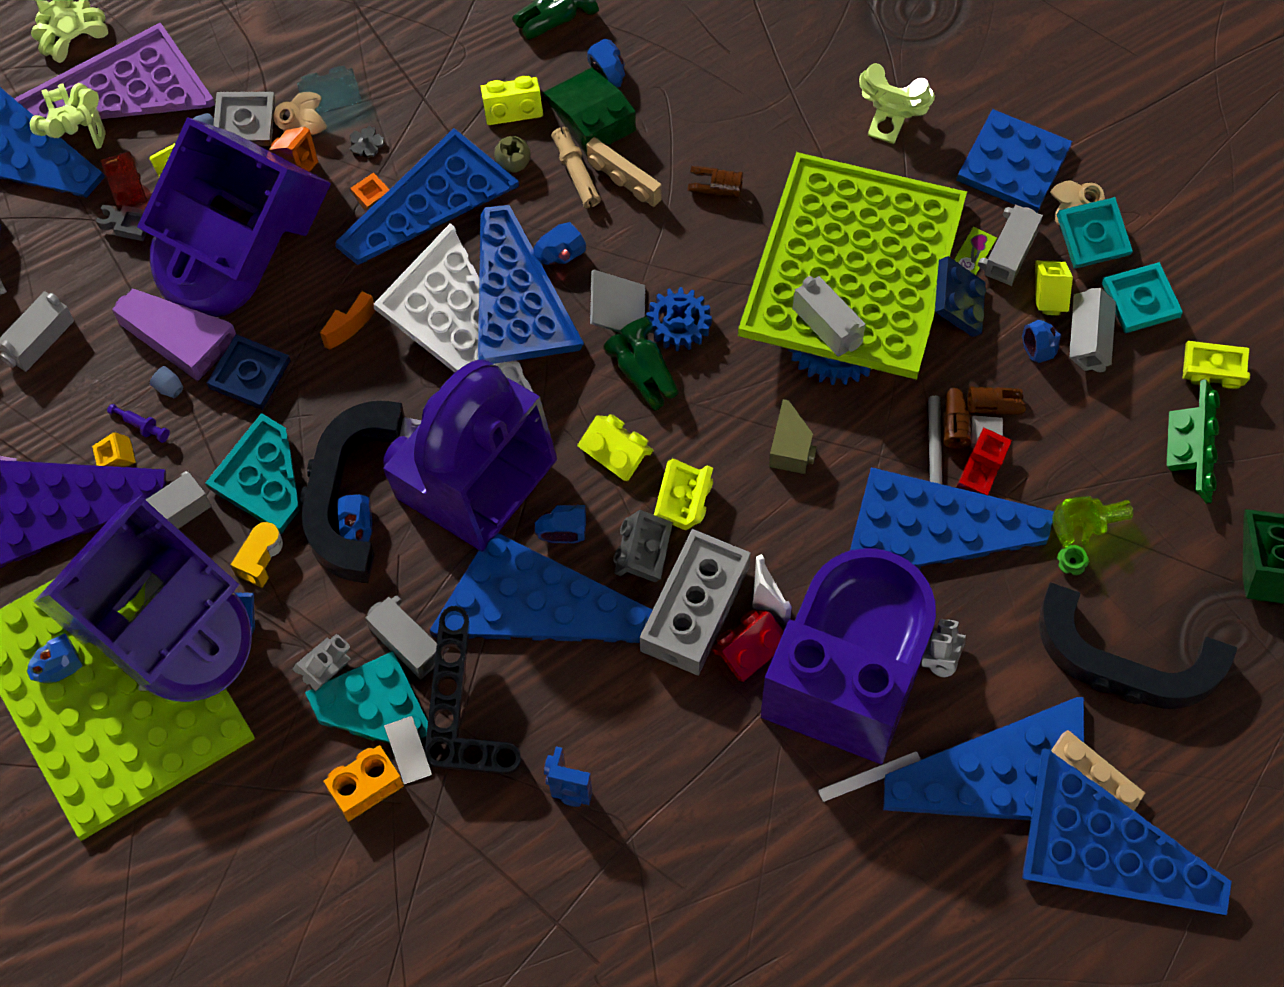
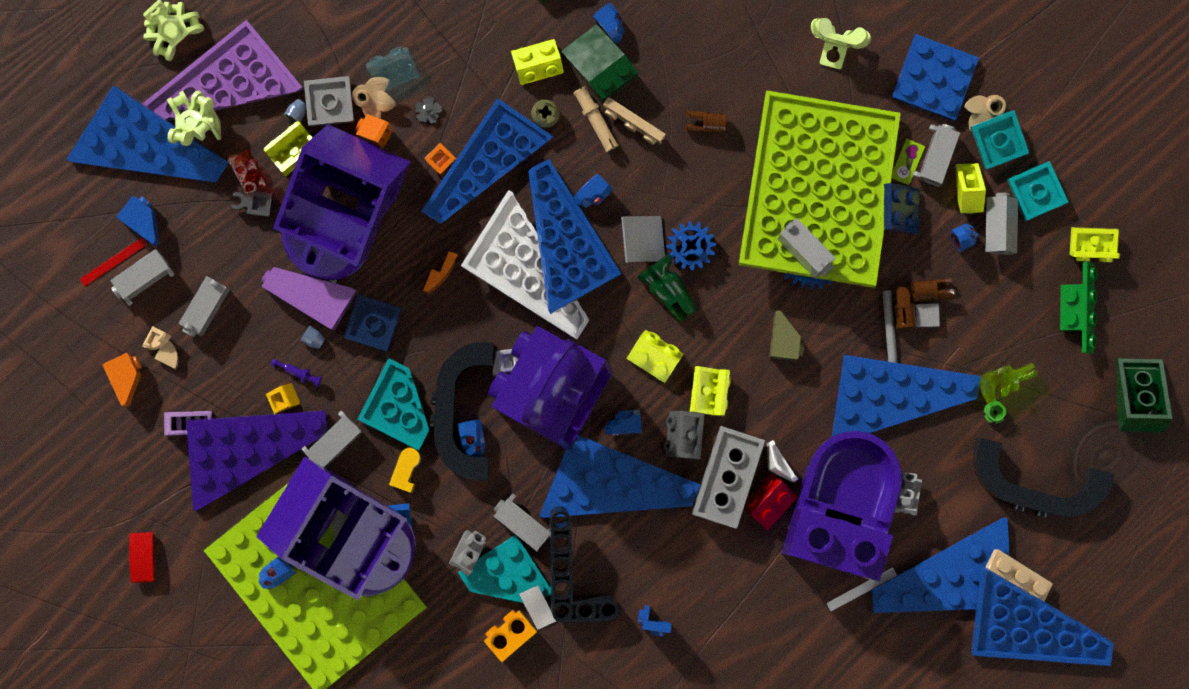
camera: 10 degrees left, 20 degrees up
(984, 462) = (926, 342): red slope -> none

